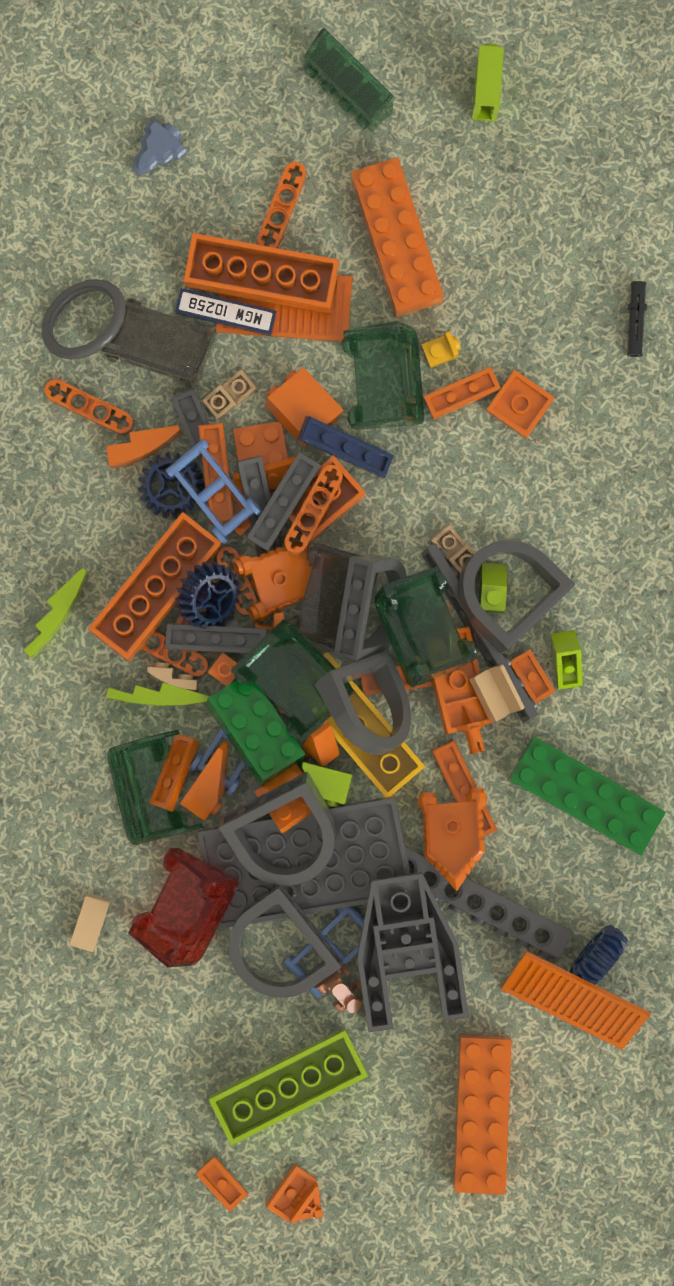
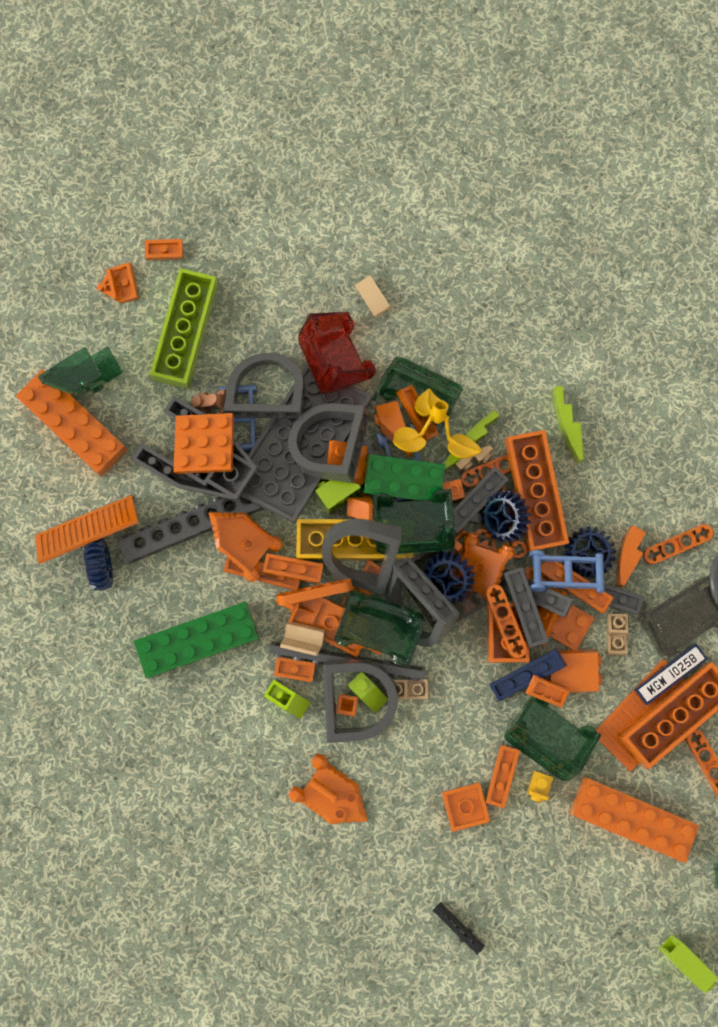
camera: 130 degrees right, 5 degrees down
(155, 765) = (430, 405): none -> yellow plant
(305, 585) = (452, 561): none -> dark blue gear
(346, 414) = (547, 691): none -> orange plate
(392, 956) = (204, 443): none -> orange plate
(426, 1143) = (82, 372): none -> clear green windscreen
(437, 762) = (293, 568): none -> orange plate
(444, 718) = (314, 592): none -> orange beam
(523, 596) = (347, 705): none -> orange slope
(618, 541) = (331, 794): none -> orange shield

